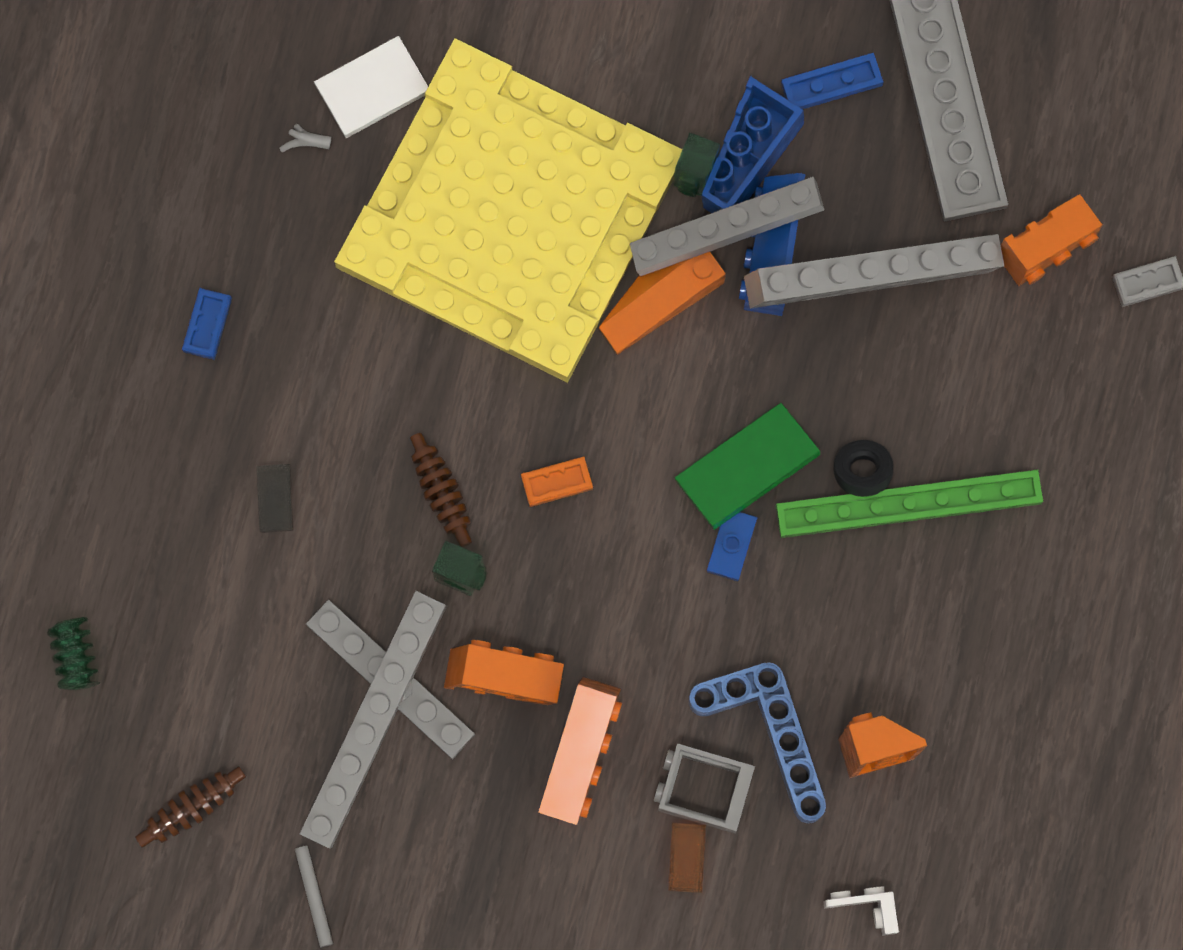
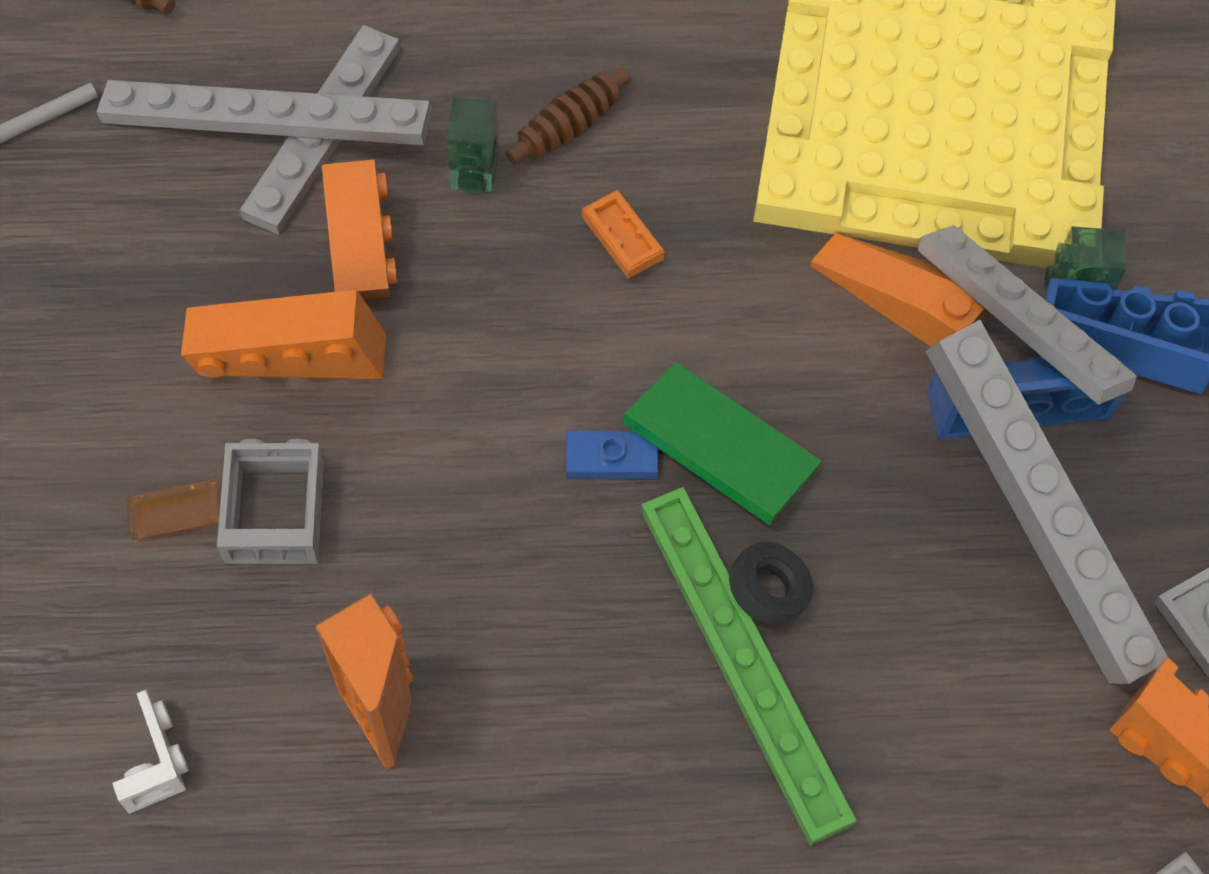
camera: 70 degrees right, 15 degrees down
(775, 728) = (373, 567): medium blue beam -> none

